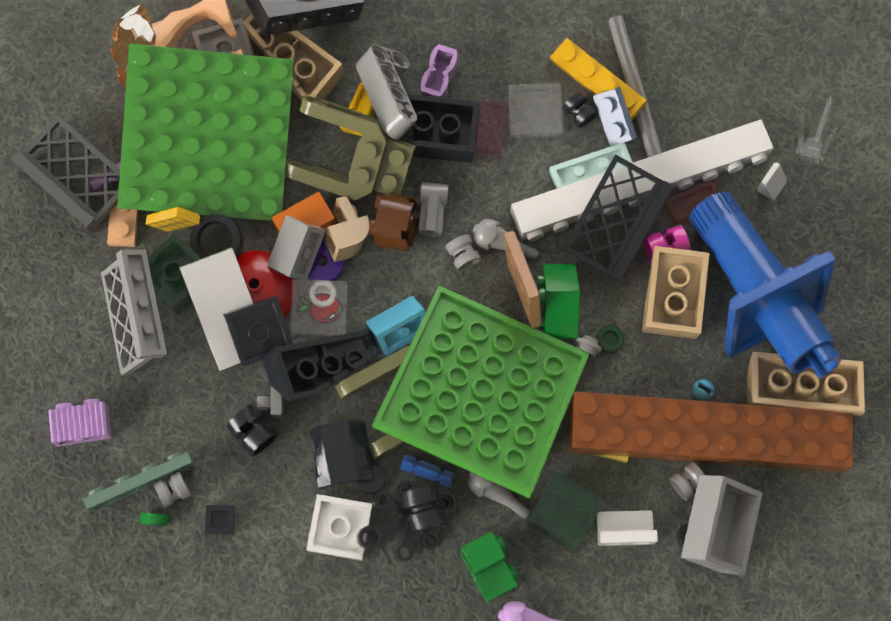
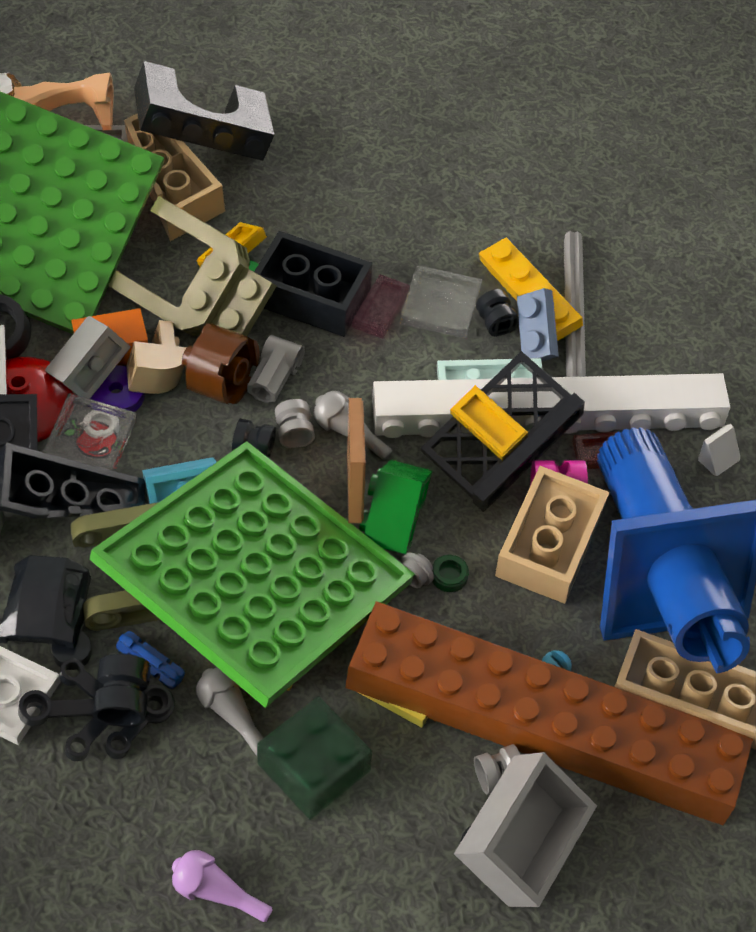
camera: 15 degrees right, 20 degrees down
(380, 74) = (264, 217): light grey beam -> none
(438, 275) = (261, 437): none -> black wheel
(440, 72) = (340, 227): lavender brick -> none
(488, 567) = (181, 784): green brick -> none
(607, 218) = (489, 422): none -> yellow tile
(625, 528) = (391, 808): white panel -> none

